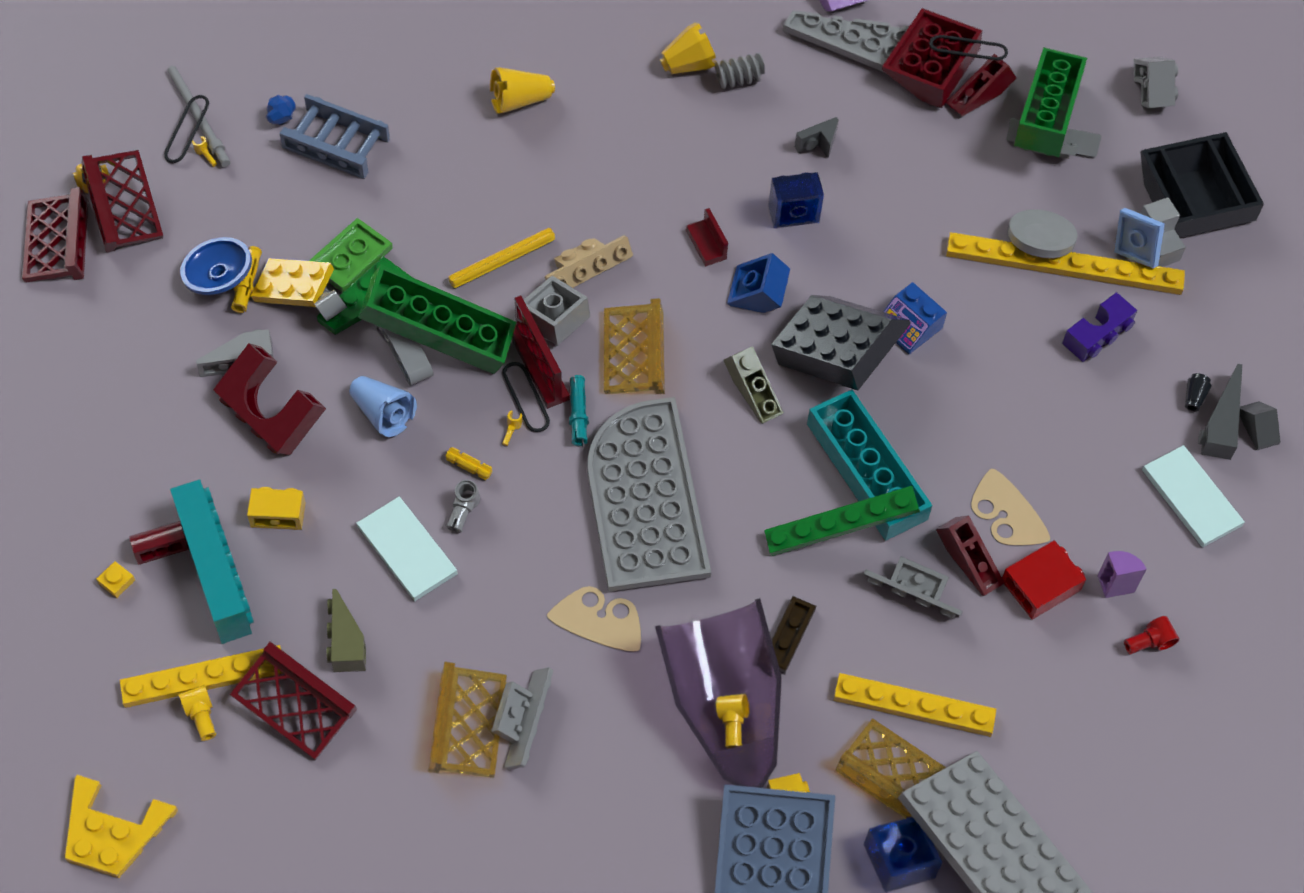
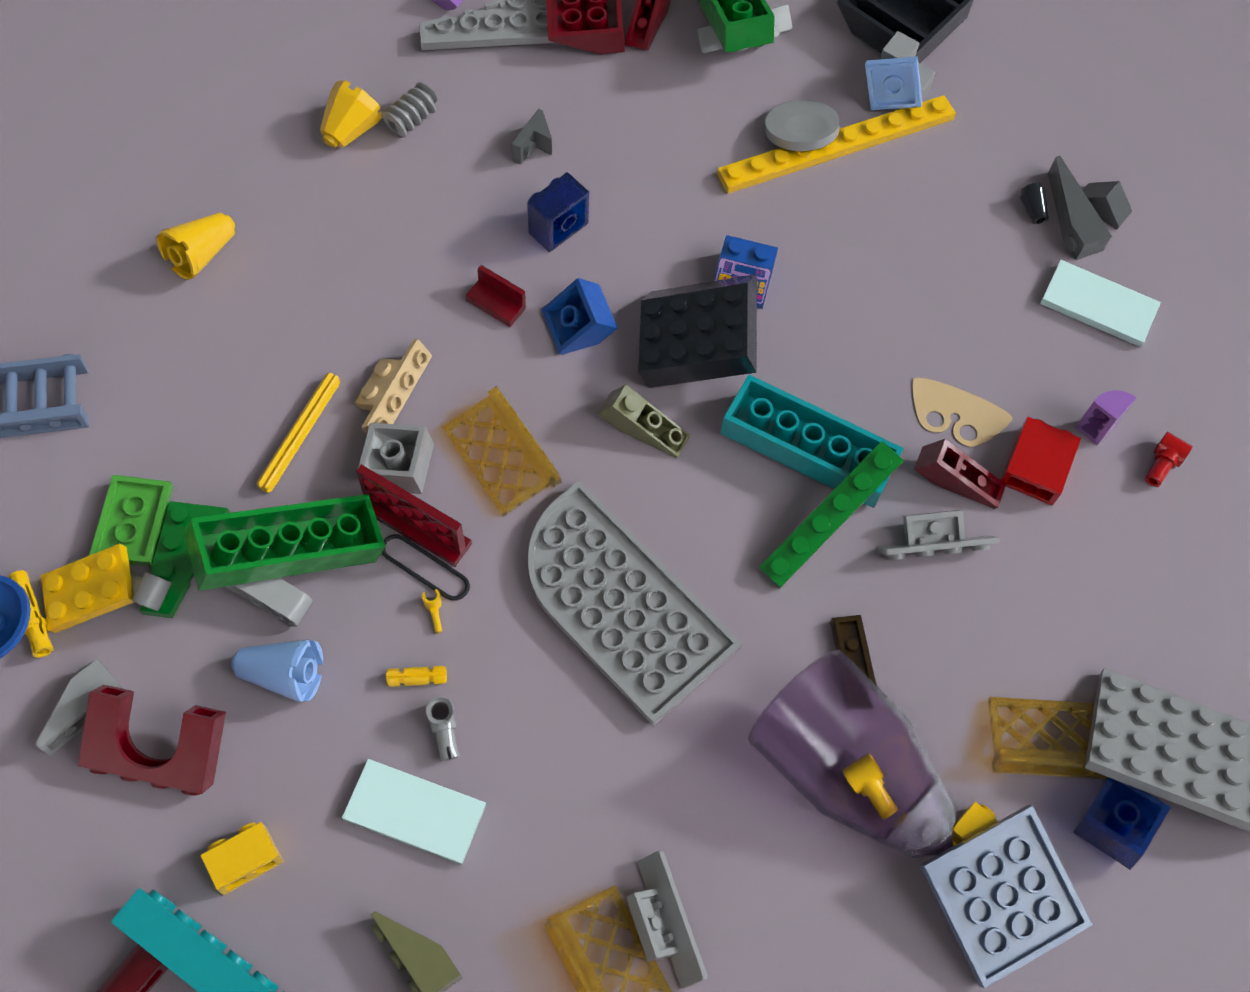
camera: 35 degrees left, 5 degrees up
(578, 418) = (498, 560): teal pin -> none
(584, 621) = (679, 769): tan piece -> none
(915, 704) = (1015, 657): yellow plate -> none
(1087, 339) = (910, 203): dark purple arch -> none

